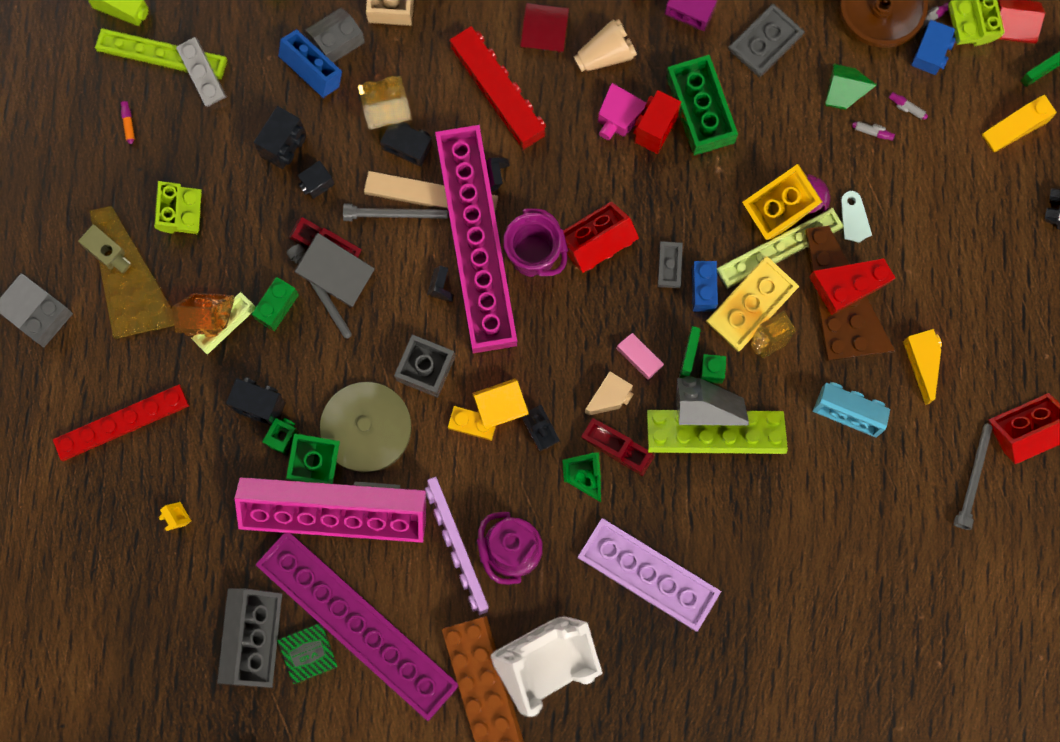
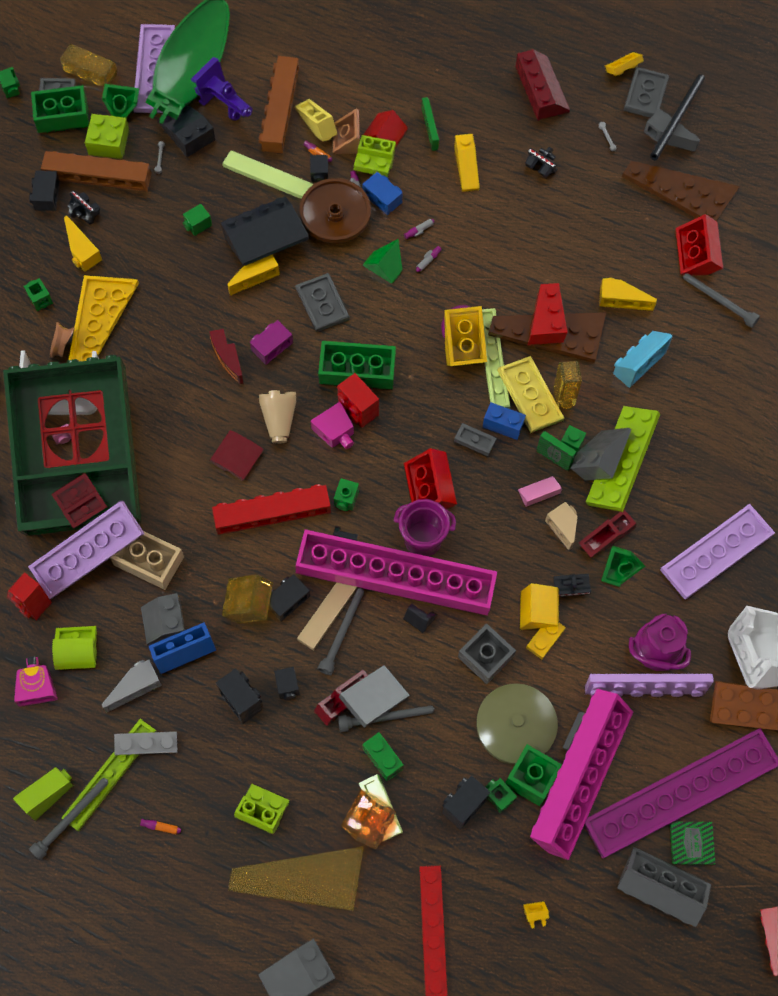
camera: 70 degrees left, 10 degrees down
(64, 22) = (39, 849): none -> dark grey piece
(99, 244) = (269, 887): olive torso -> none
(256, 34) = (134, 684): none -> light grey slope
(545, 155) = (346, 494): none -> green brick
(854, 218) = (491, 299): light aqua piece -> none

